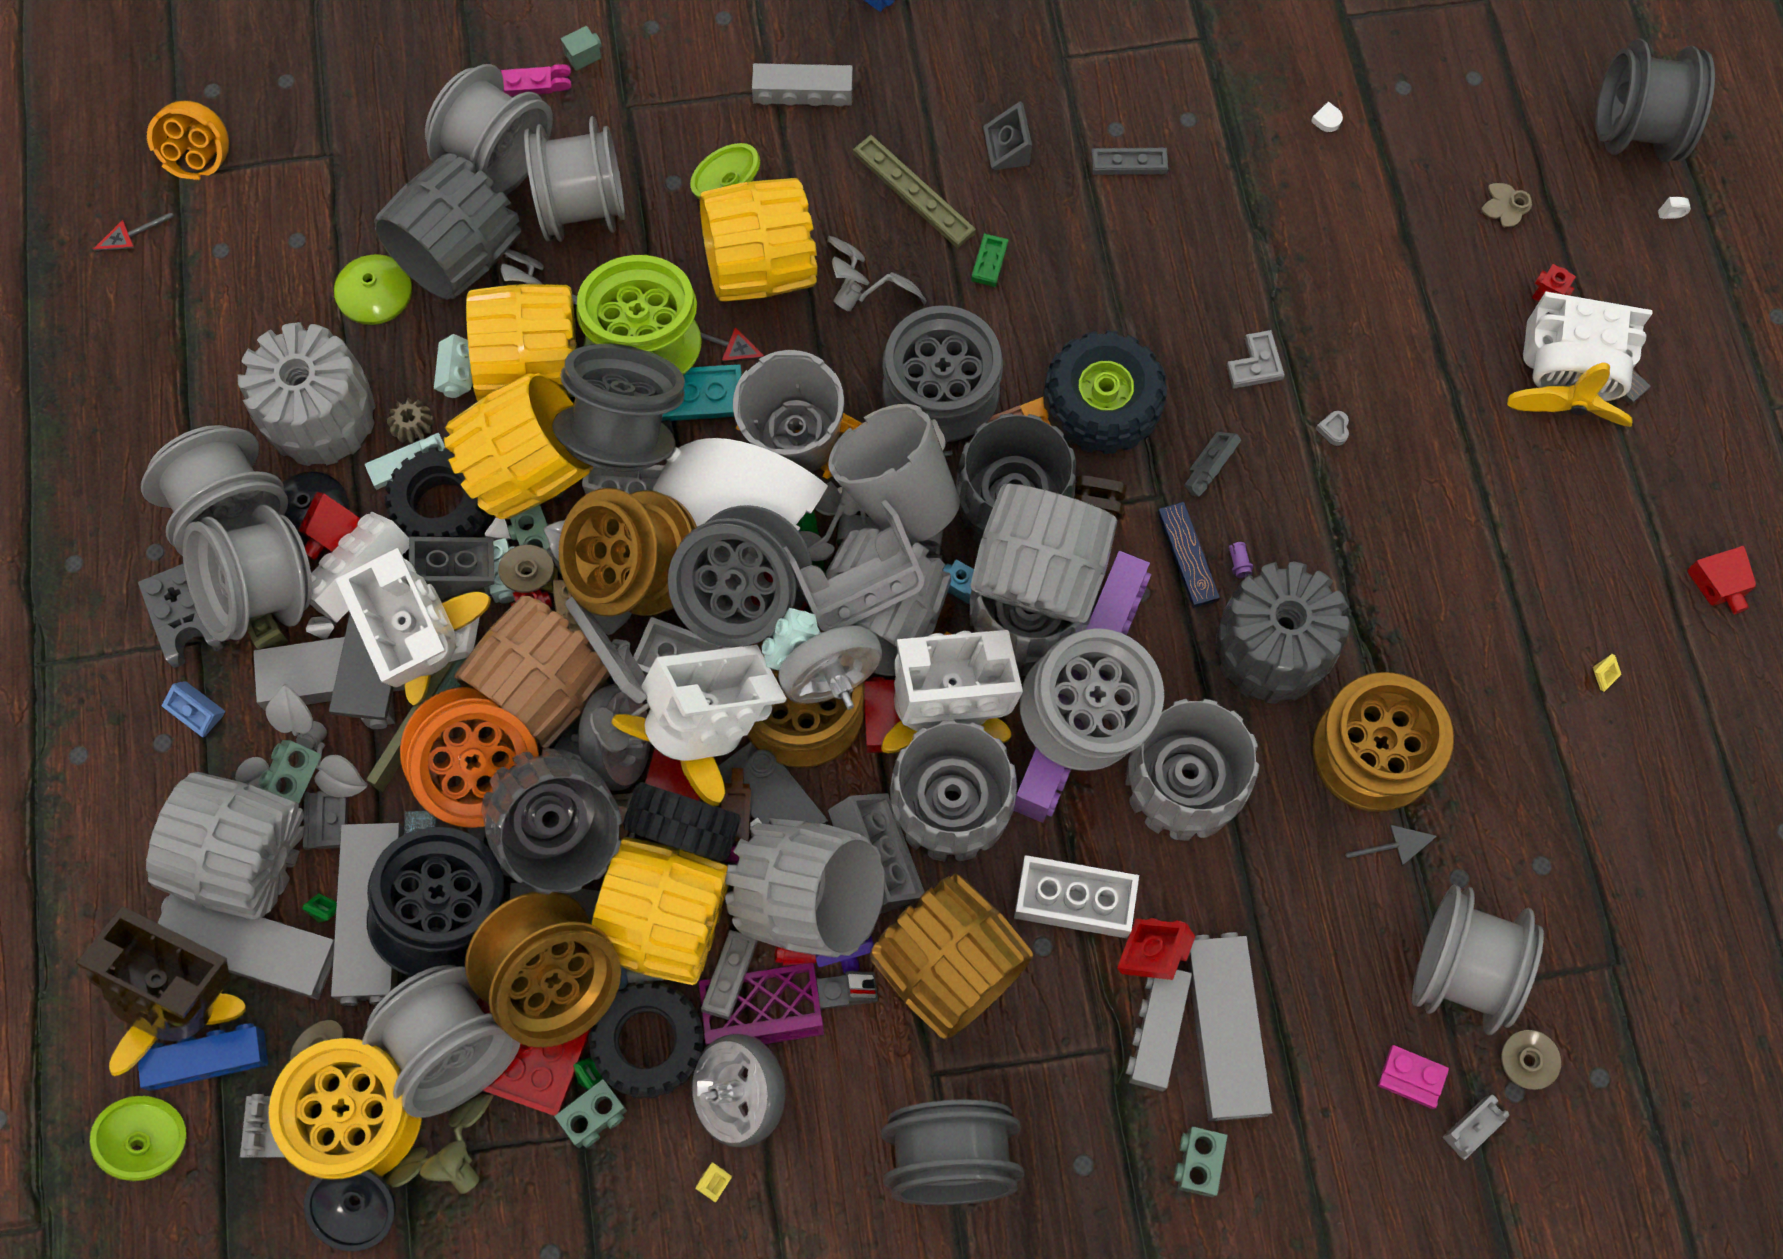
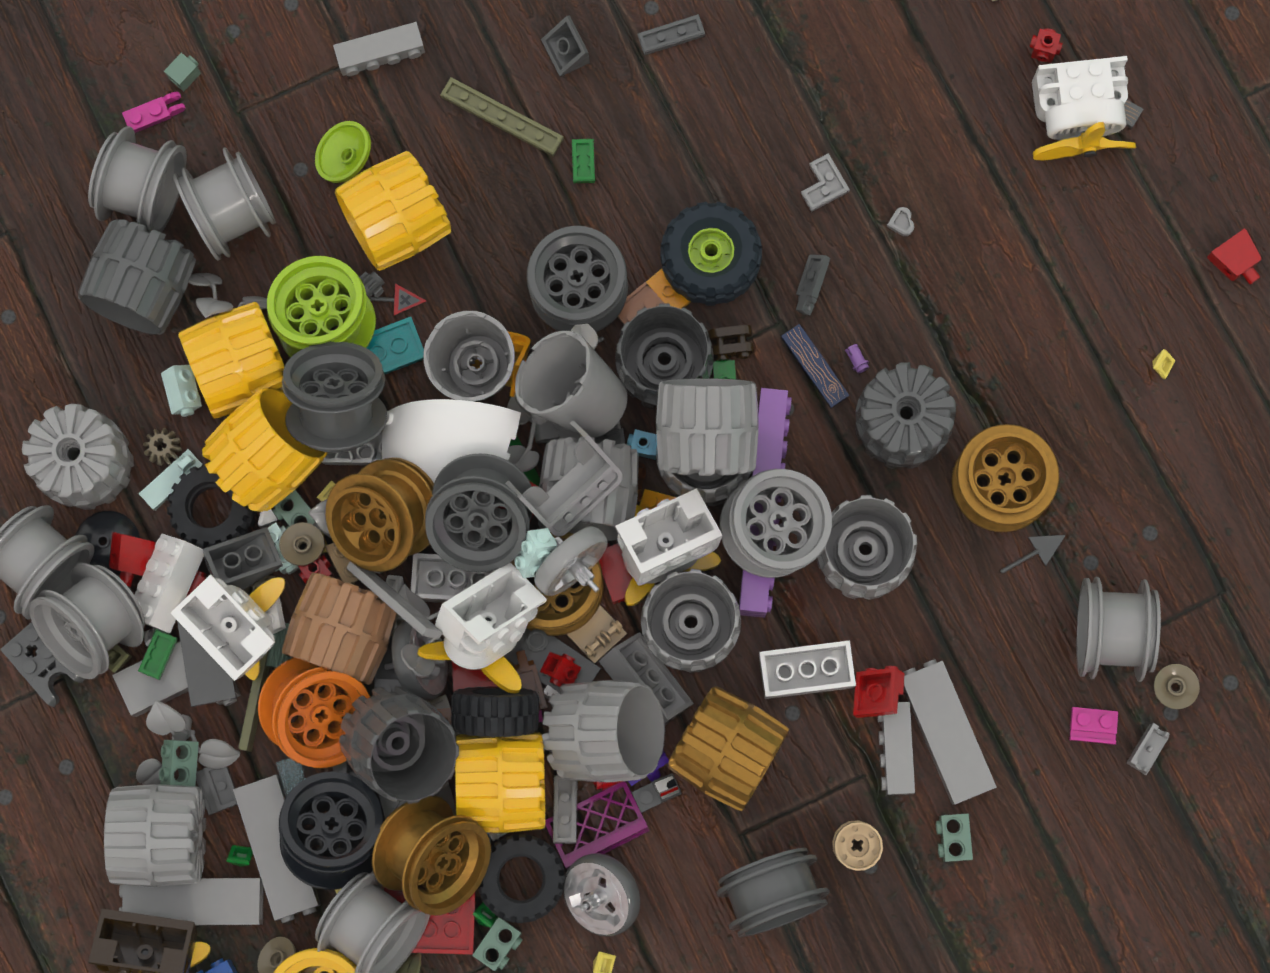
camera: 10 degrees left, 10 degrees up
(192, 708) = (79, 732): medium blue slope -> none
(313, 642) = (157, 654): none -> green plate
(375, 300) = (96, 351): lime dish -> none
(708, 318) = (372, 284): none -> dark grey gear
(778, 801) = (560, 669): none -> red brick
(837, 780) = (598, 635): none -> tan hinge
(850, 290) = (479, 222): light grey plant -> none
(1091, 1139) = (870, 846): none -> tan wheel

